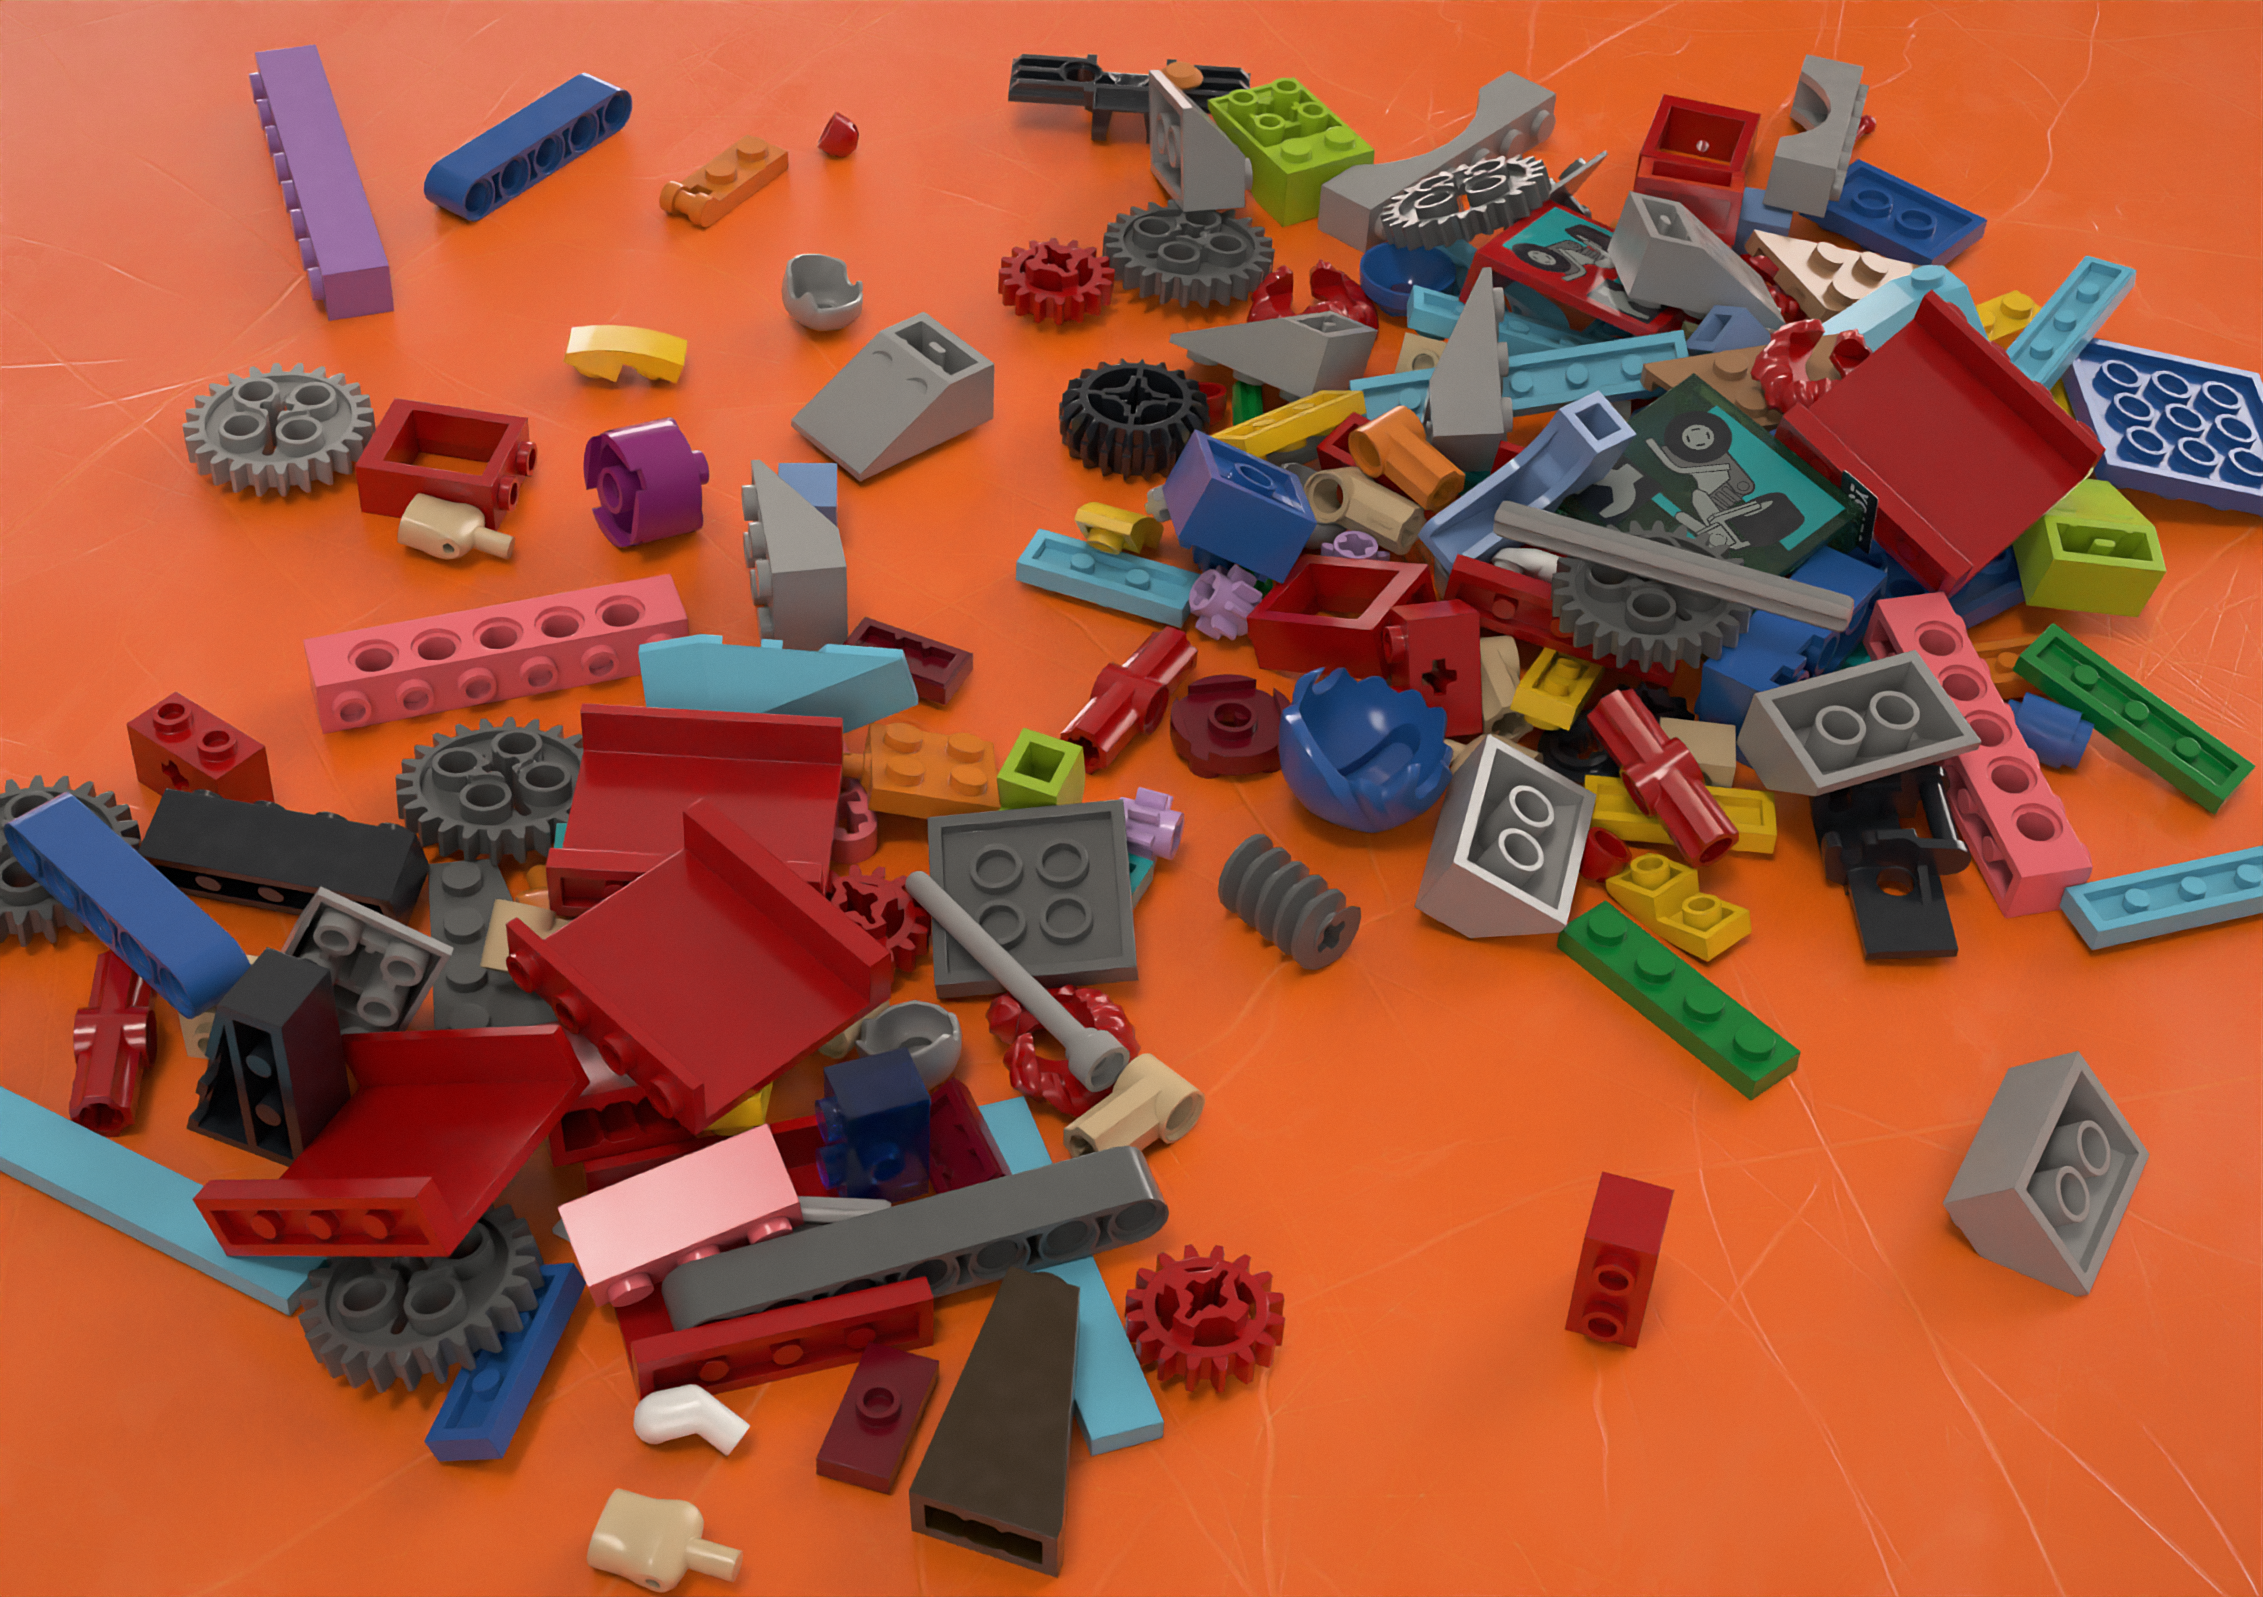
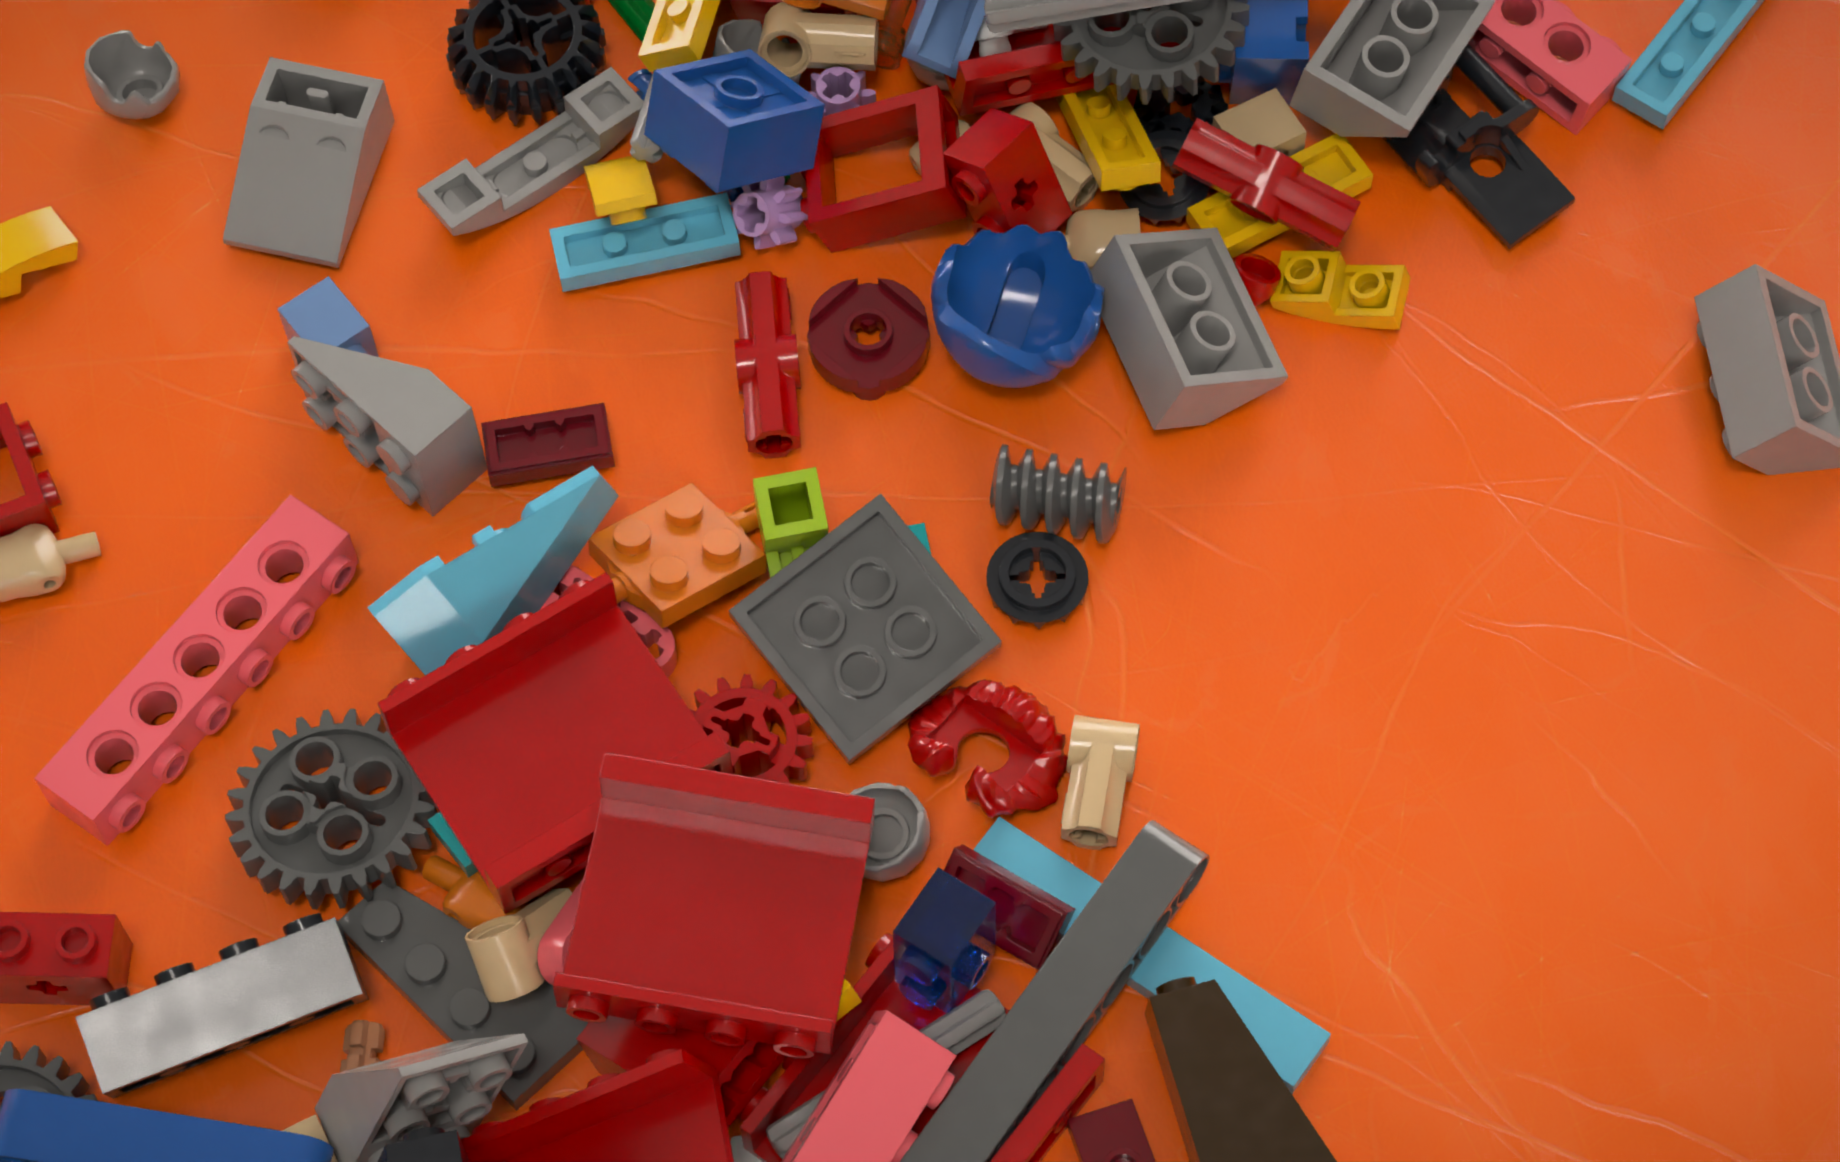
camera: 30 degrees left, 20 degrees up
(645, 482) = (175, 404): magenta brick -> none
(1056, 495) = (539, 163): none -> light grey slope
(1093, 1055) = (1036, 751): light grey piece -> none
(1152, 826) = (898, 484): lavender gear -> none
(1204, 1318) = (1269, 930): red gear -> none
(1209, 939) = (1059, 563): none -> black gear
(1618, 1259) = (1559, 674): red brick -> none
(1679, 1000) = (1403, 382): green plate -> none

